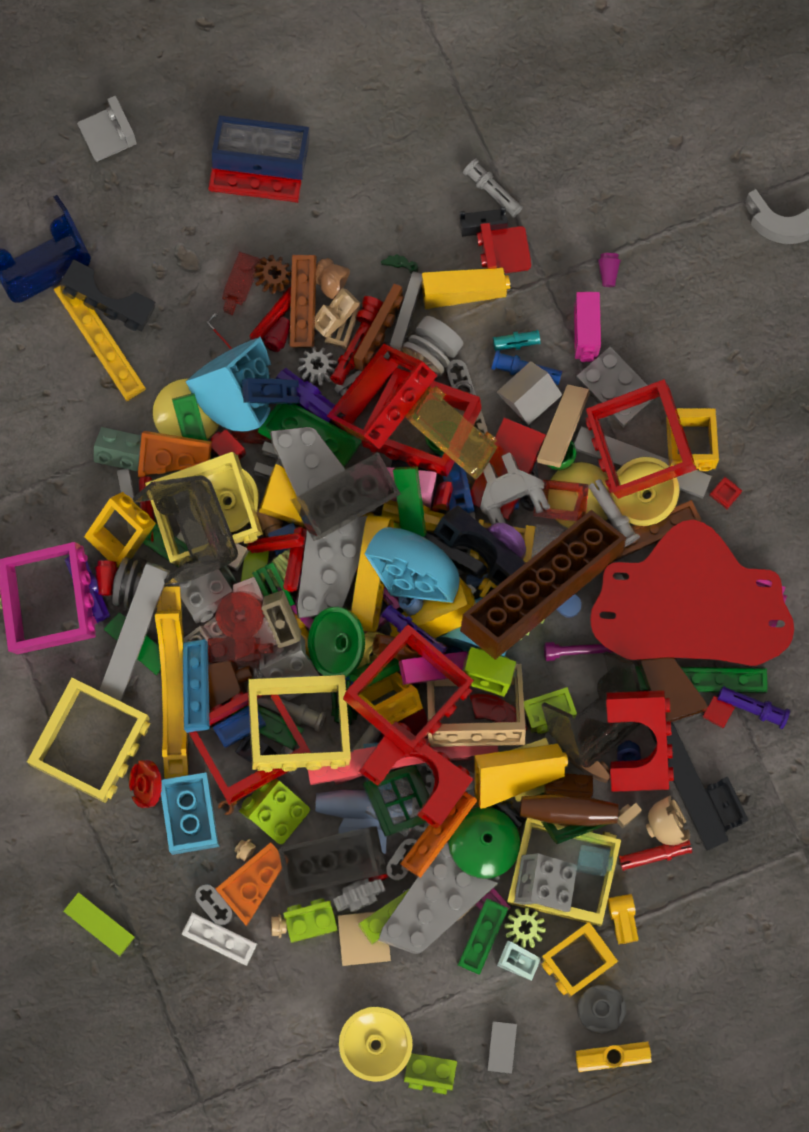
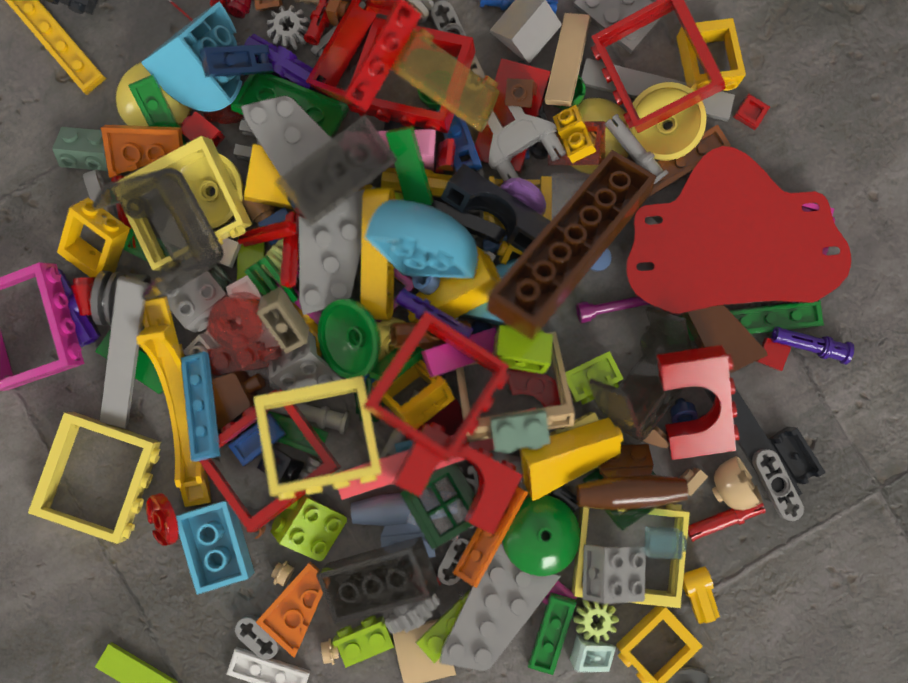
camera: 10 degrees left, 10 degrees up
(475, 738) = (520, 430): none -> sand green bracket
(515, 450) = (520, 92): none -> reddish brown bracket
(559, 491) = (574, 133): none -> yellow slope
(693, 812) = (779, 505): none -> light grey beam

